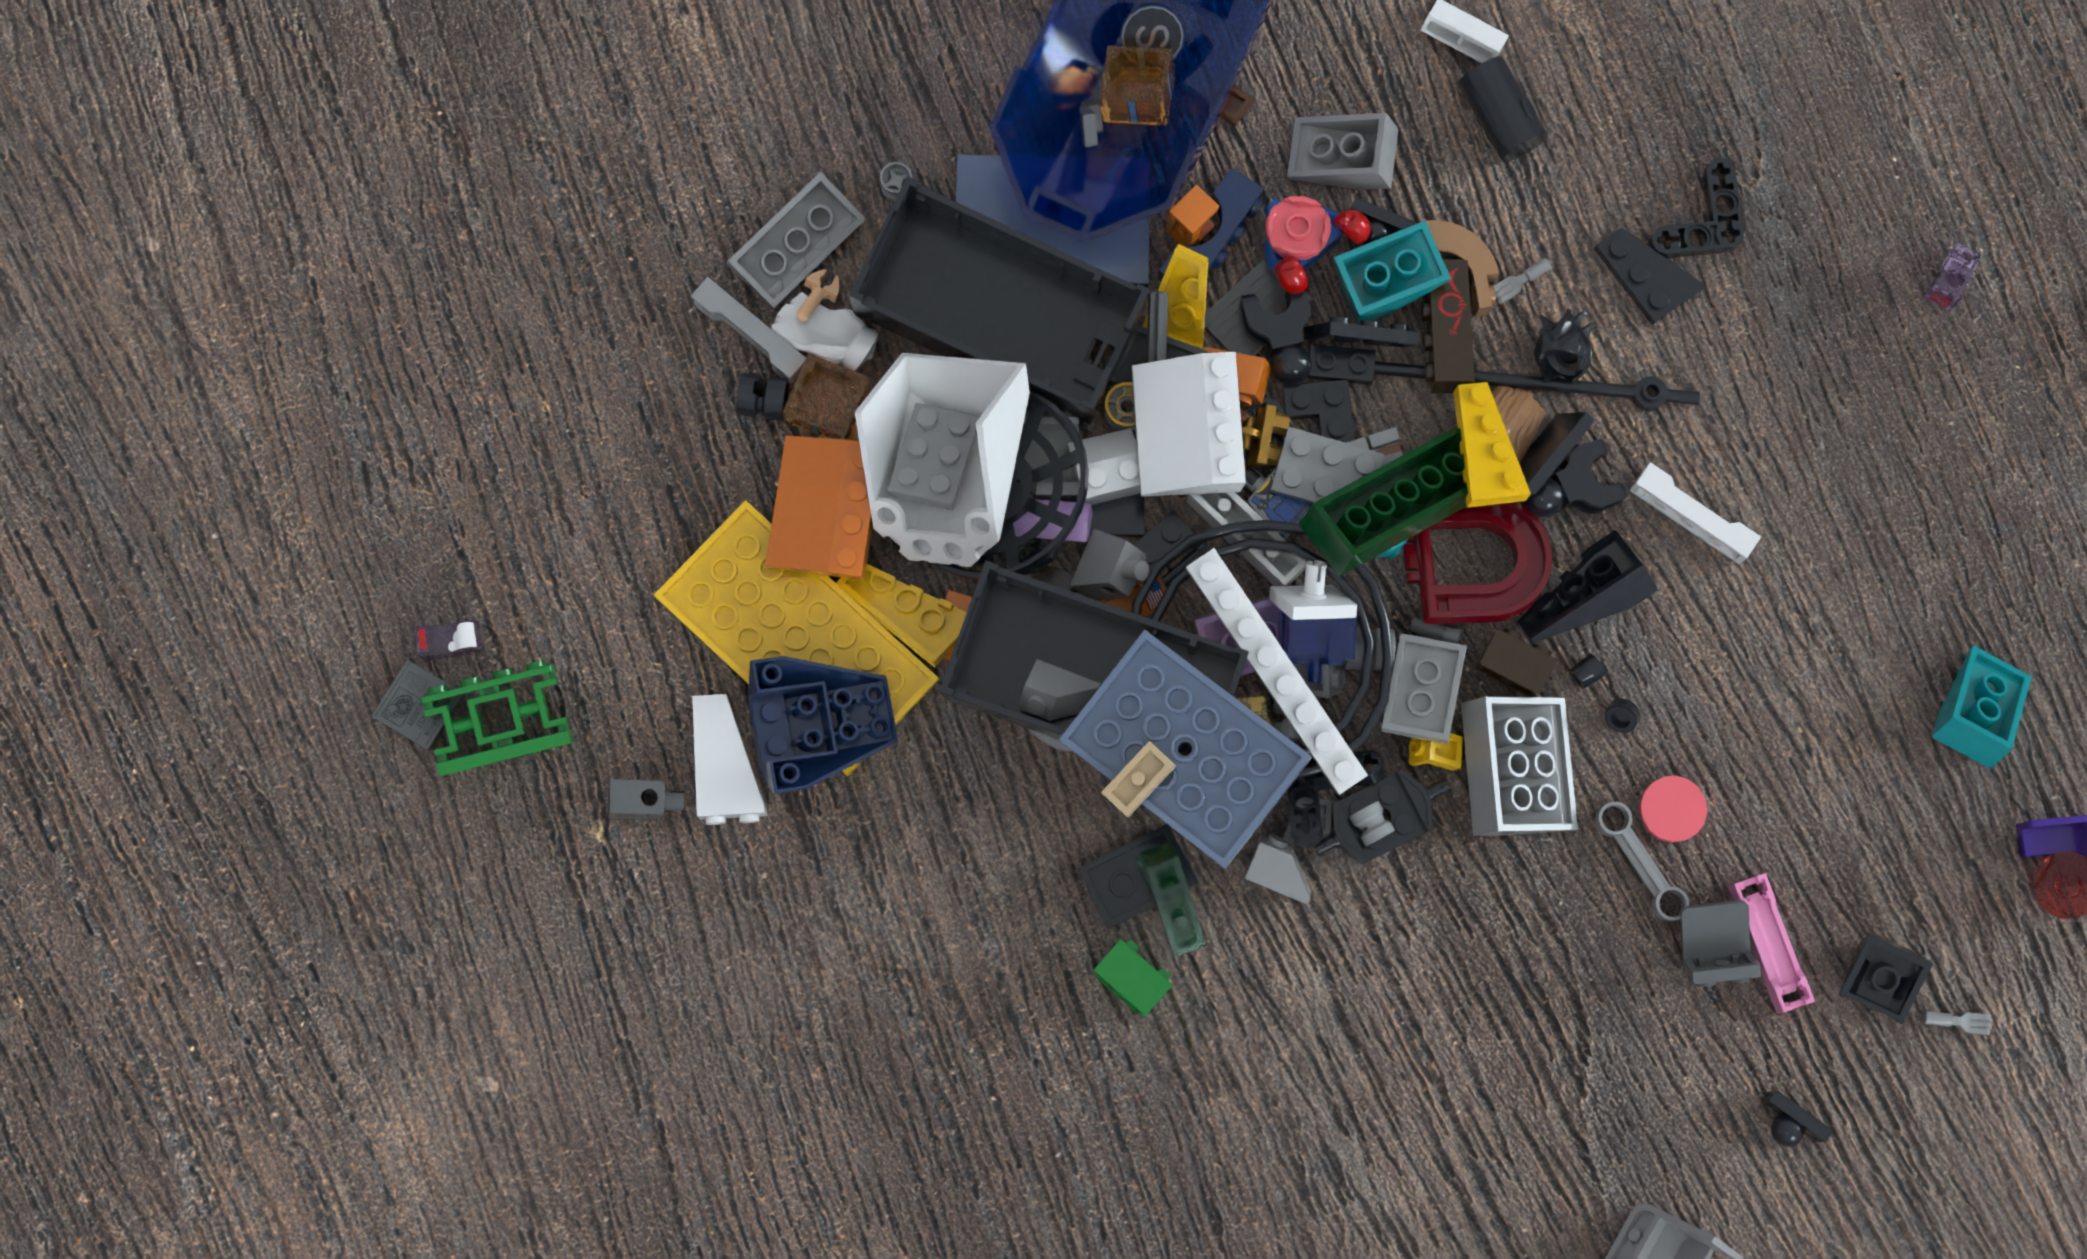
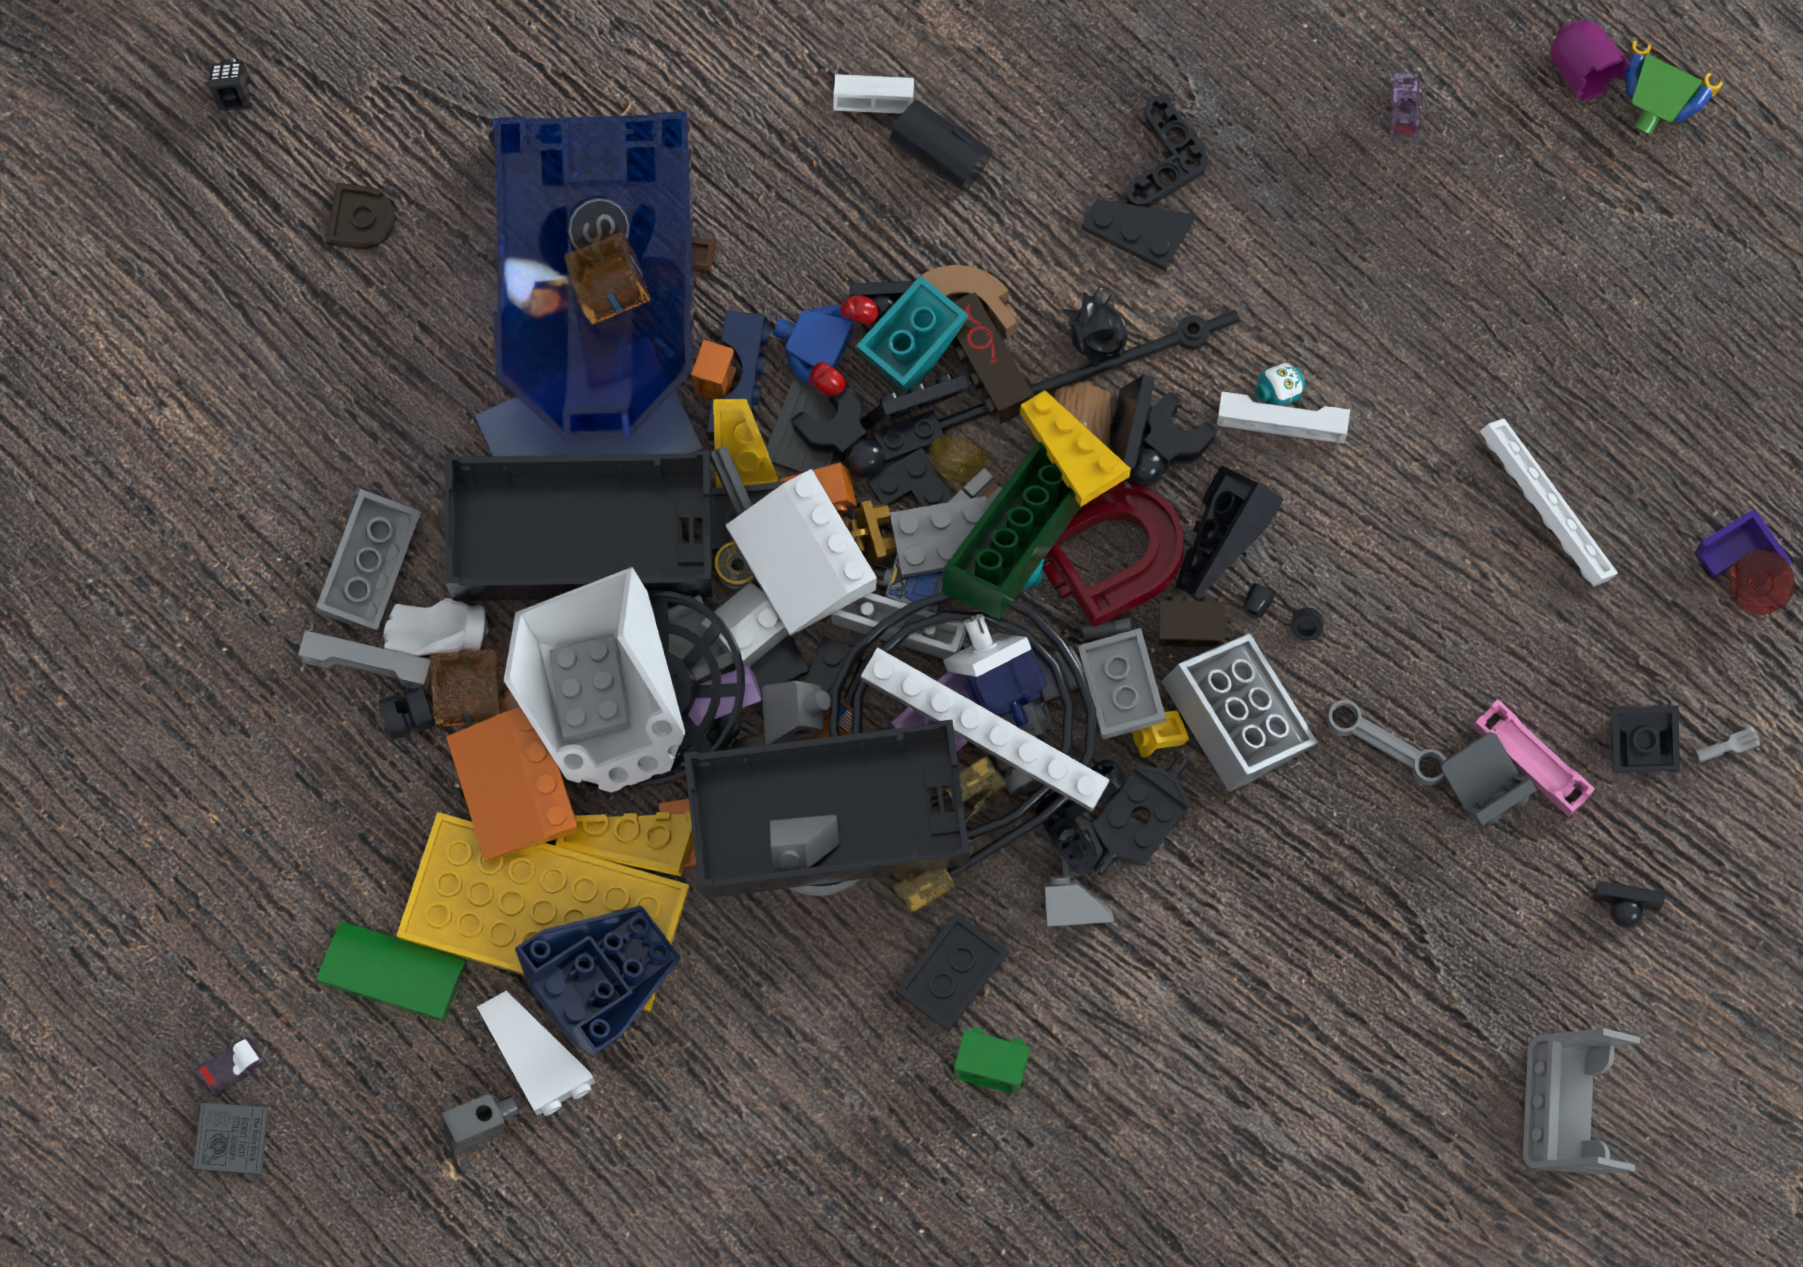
camera: 20 degrees left, 5 degrees down
(503, 743) = (325, 1132): green fence -> none
(634, 624) = (391, 971): none -> green slope
(817, 293) = (410, 598): light nougat bar -> none
(893, 175) = (431, 459): light grey wheel -> none
(1090, 122) = (581, 329): dark grey slope -> none
(1138, 779) = (911, 875): tan plate -> none
(1172, 898) = (992, 974): clear green slope -> none
(1236, 757) = (899, 803): sand blue piece -> none
(1298, 227) = (811, 335): coral tile -> none
(1344, 150) = (818, 248): light grey slope -> none
(1372, 823) = (1135, 823): light grey wheel -> none
(1375, 405) = (957, 457): none -> clear yellow piece
(1512, 285) = (1025, 295): light grey piece -> none
(1673, 809) = (1391, 684): coral tile -> none
(1706, 482) = (1280, 385): none -> head
(1903, 710) = (1549, 503): none -> white plate
(1983, 708) = (1614, 465): teal slope -> none

